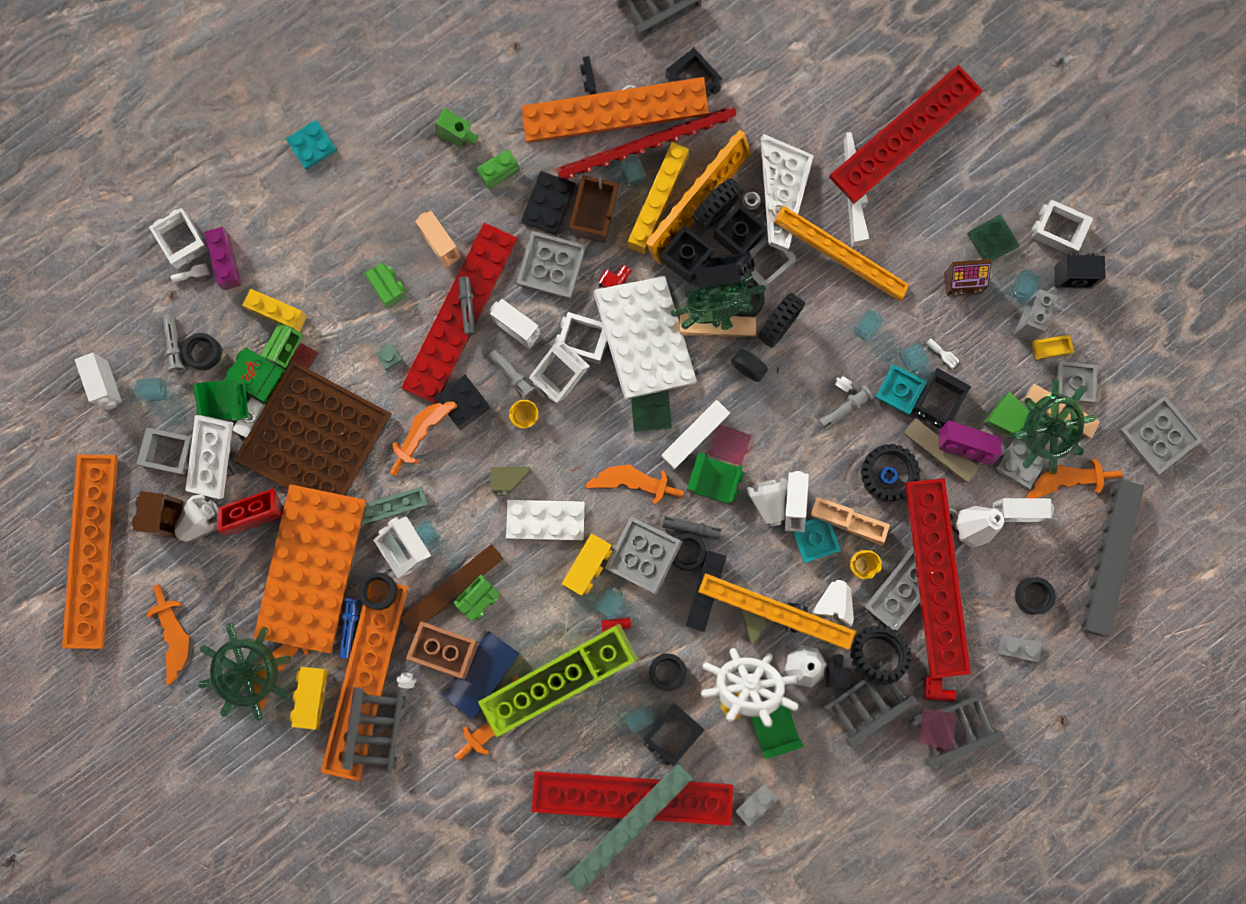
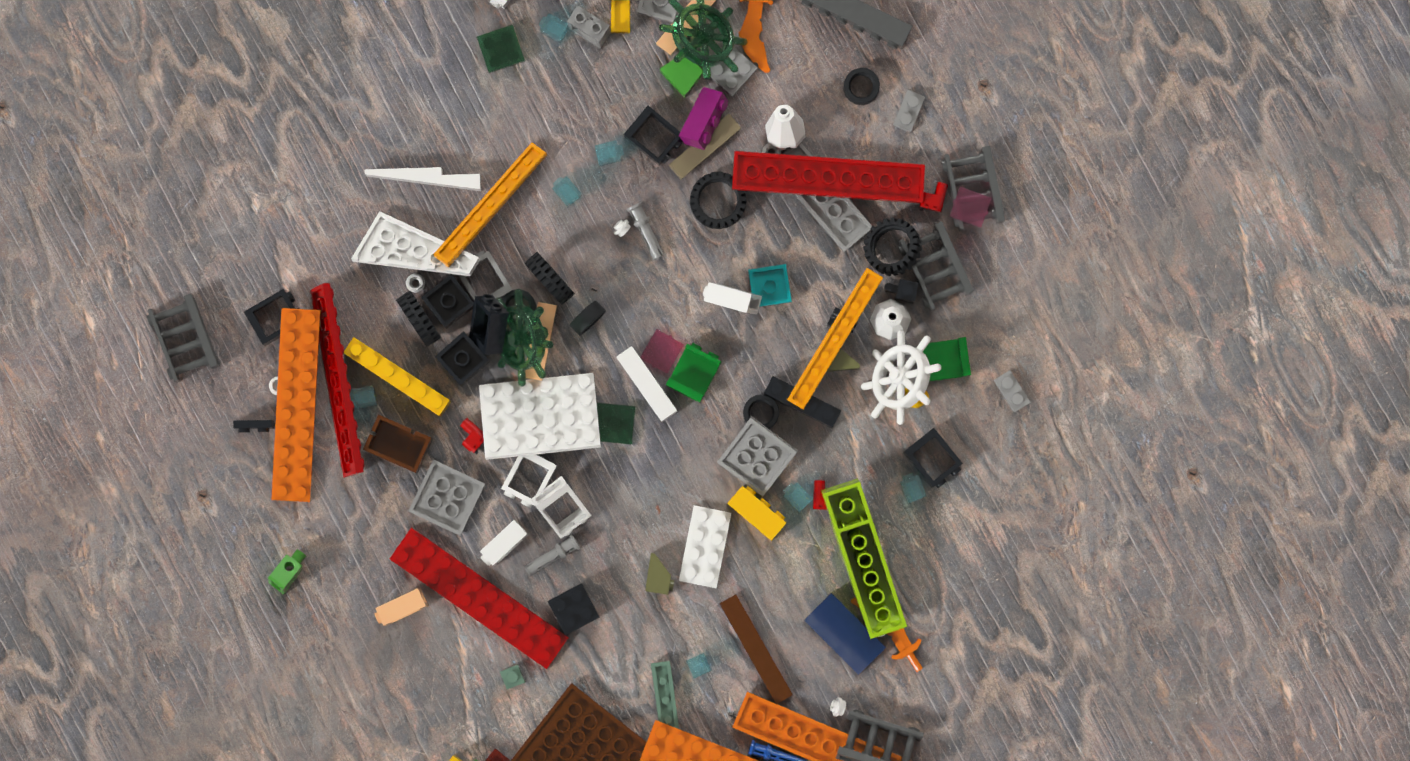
camera: 80 degrees left, 5 degrees up
(311, 144) = (272, 724): teal plate -> none
(362, 592) = (762, 720): black tyre -> none
(385, 285) = (438, 668): bright green brick -> none
(392, 552) = (713, 700): white window -> none
(419, 430) = (595, 657): orange sword -> none
(442, 651) = (816, 666): nougat brick -> none
(466, 302) = (472, 588): dark grey pin -> none
(477, 598) = (770, 625): bright green brick -> none
(498, 169) = (336, 535): bright green brick -> none
(523, 414) = (596, 550): yellow hair -> none
(548, 202) = (380, 490): black plate -> none
(619, 795) = (985, 508): red plate -> none
(629, 827) = (1011, 515): sand green plate -> none
(633, 479) = (680, 452): orange sword -> none
(682, 672) = (887, 450): black tyre -> none
(691, 527) = (738, 404): dark grey pin -> none
(718, 171) = (401, 331): light orange plate -> none
(770, 500) = (724, 323): white cone -> none
(836, 604) = (838, 279): white cone -> none
(850, 521) = (759, 249): light nougat slope -> none
(865, 564) = (803, 243): yellow hair -> none
(883, 472) = (716, 206): blue bush -> none
(900, 389) = (637, 173): teal plate -> none
(905, 134) = (376, 114): red plate -> none
(947, 357) = (612, 119): white piece -> none
(967, 277) = (537, 84): reddish brown slope -> none
(1024, 509) = (778, 81): white window -> none

